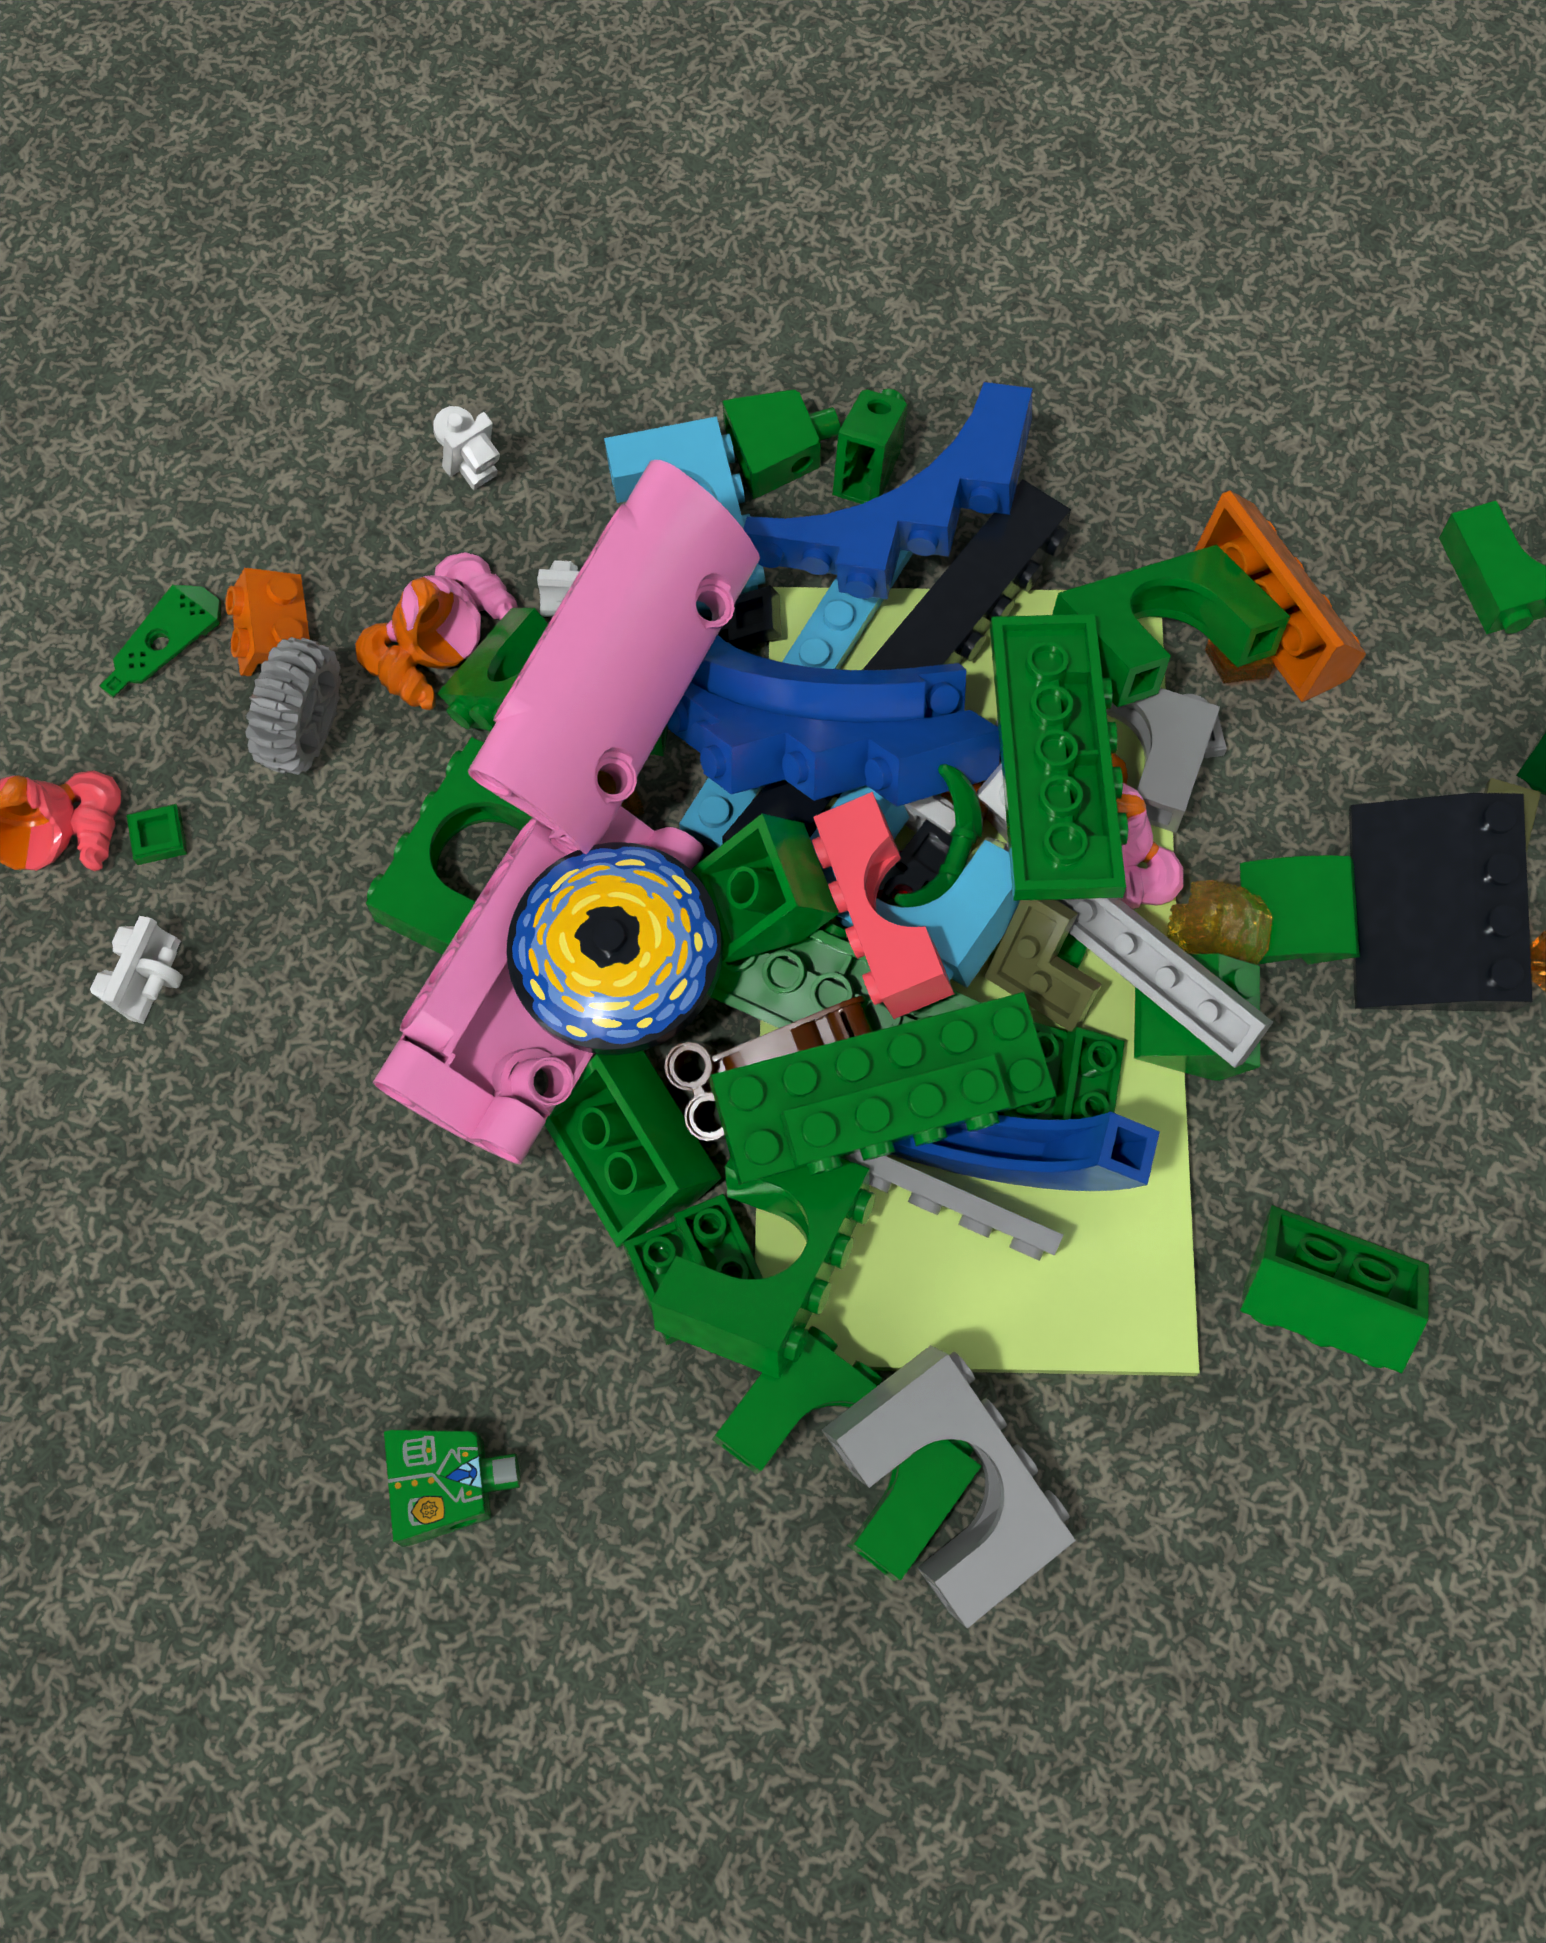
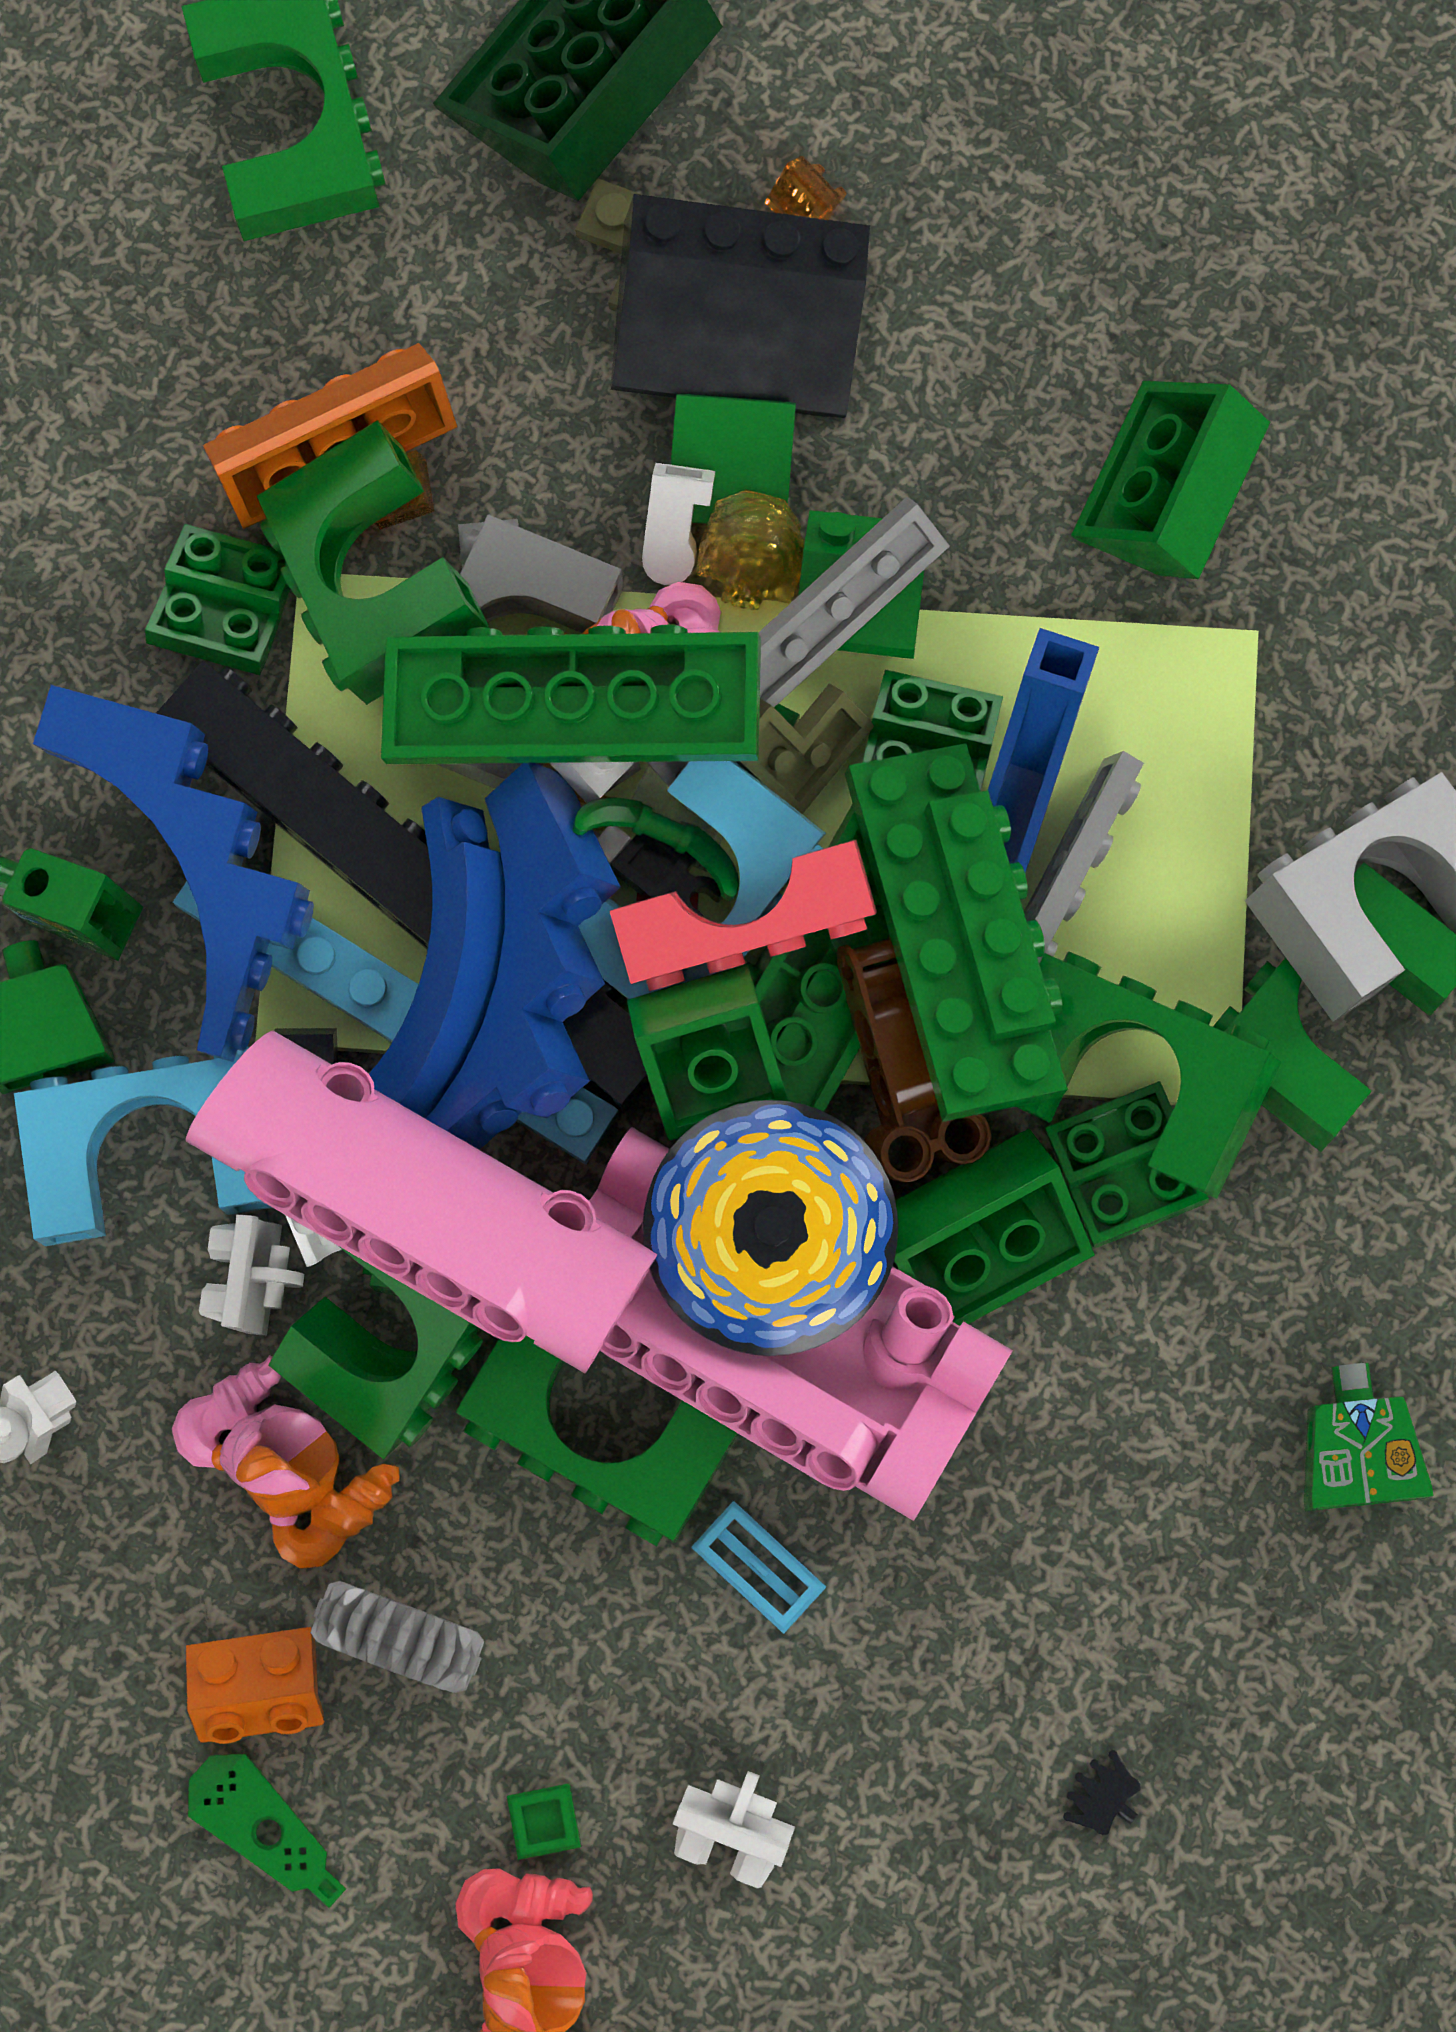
camera: 85 degrees left, 10 degrees up
(153, 1270) = (1105, 1798): none -> black piece
(365, 996) = (719, 1531): none -> medium azure tile
(1128, 533) = (220, 600): none -> green slope
(1238, 858) = (668, 543): none -> white leg

